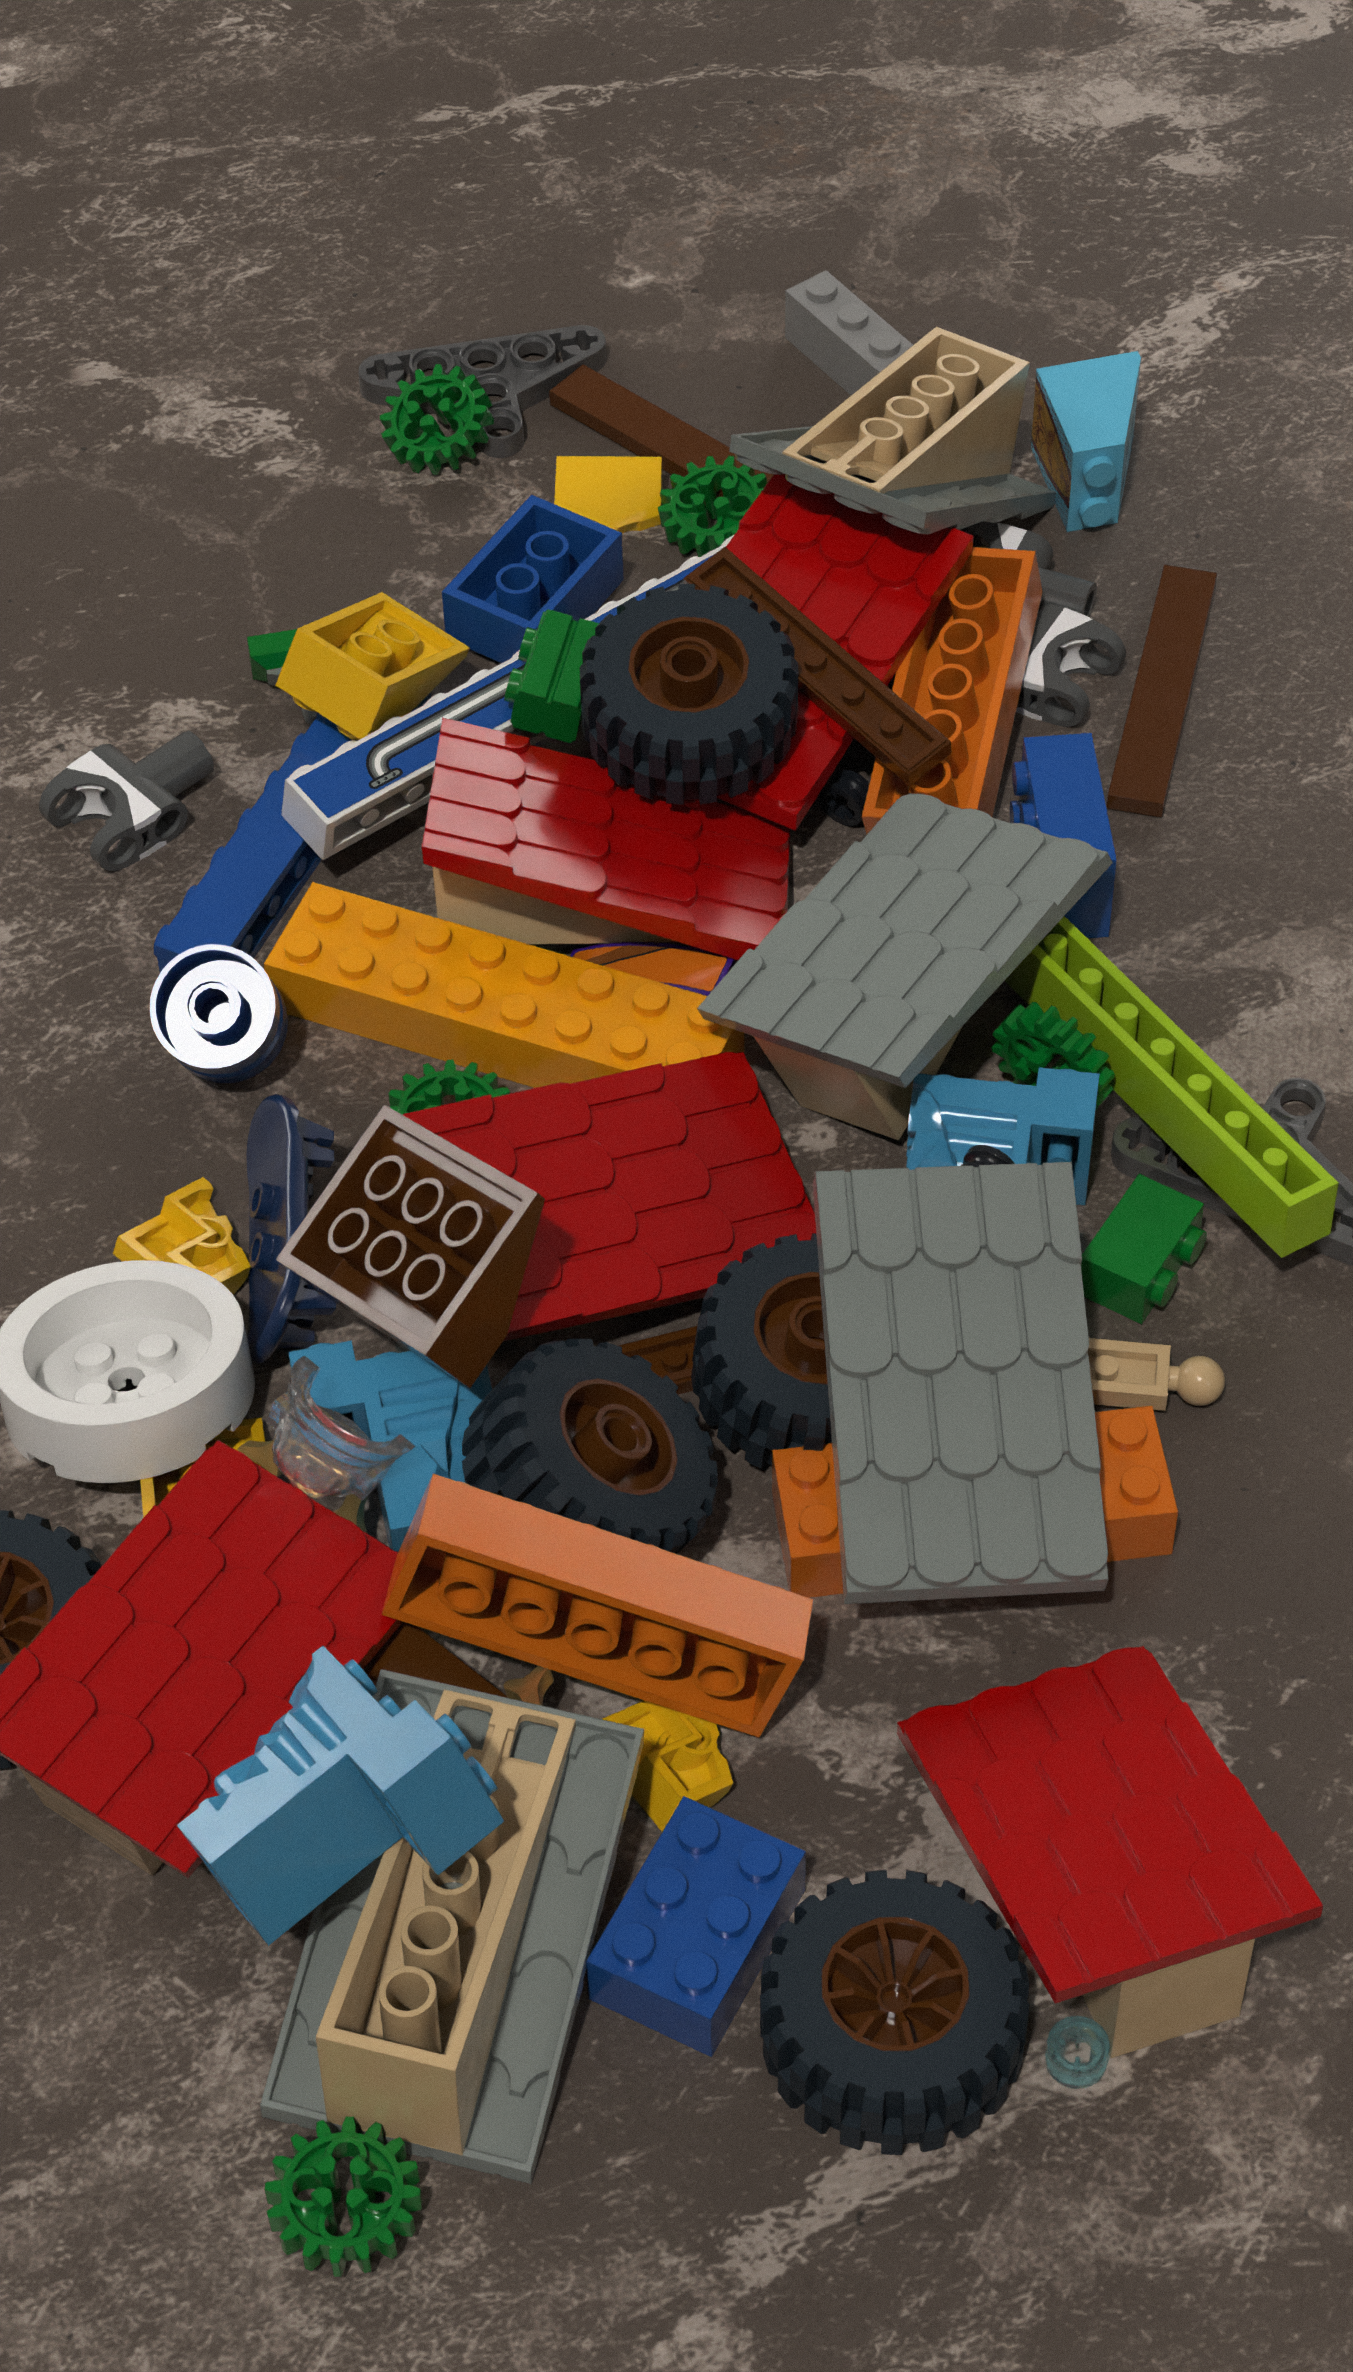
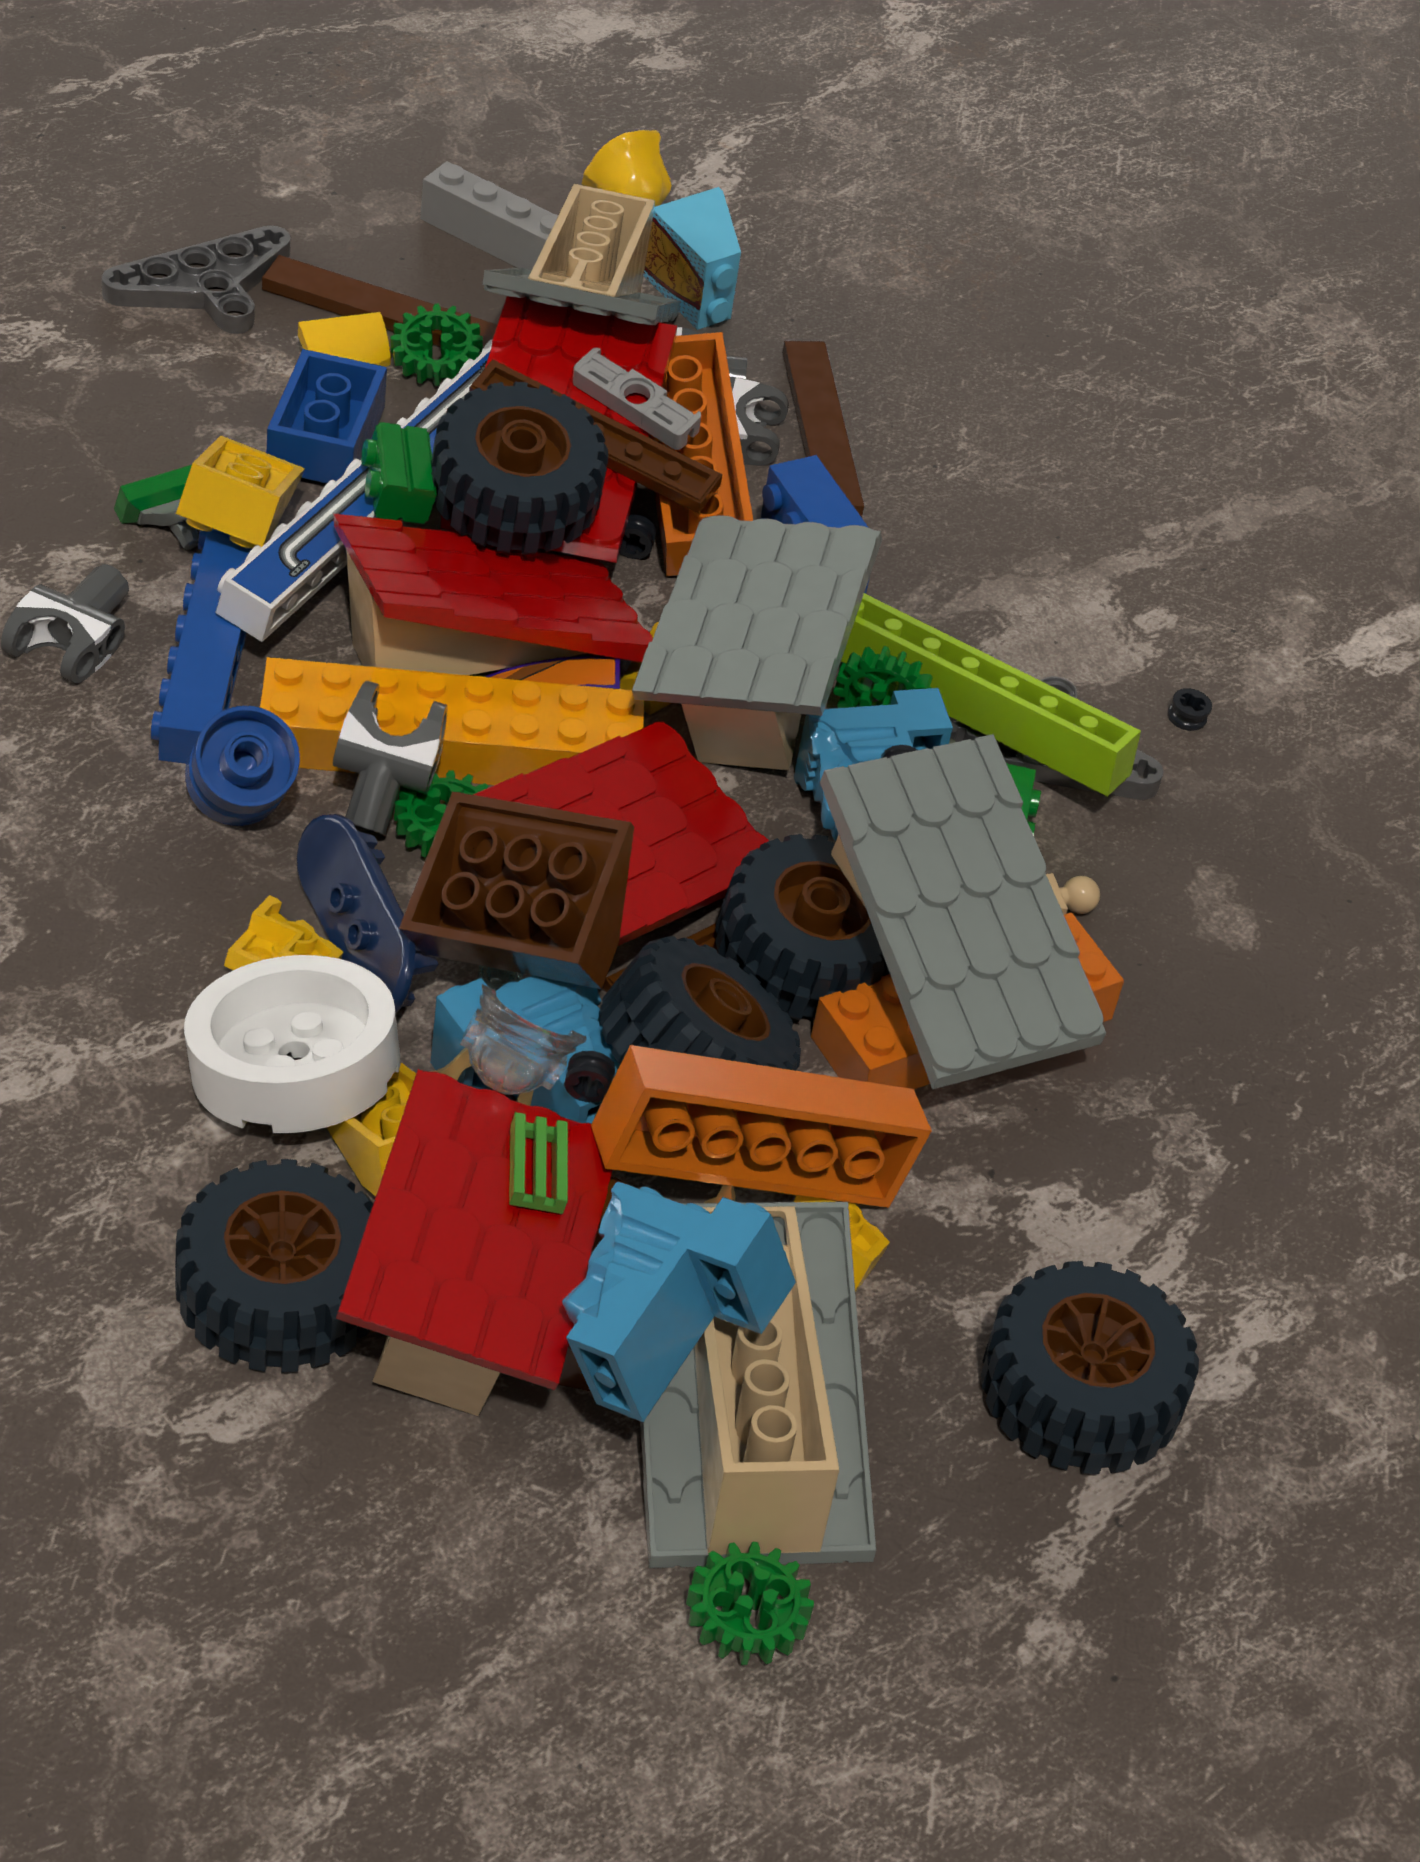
camera: 30 degrees left, 5 degrees down
(317, 1550) = (540, 1134): none -> bright green tile
(389, 1037) = (386, 760): none -> dark grey connector
(401, 1493) = (586, 1064): none -> black bush
(464, 417) = (161, 308): green gear -> none
(696, 1926) = (919, 1344): blue brick -> none
(901, 651) = (657, 416): none -> light grey piece
(1057, 312) = (631, 167): none -> yellow piece
(1078, 2030) = (1221, 1354): clear light blue bush -> none
(1113, 1842) = (1191, 1208): red piece -> none

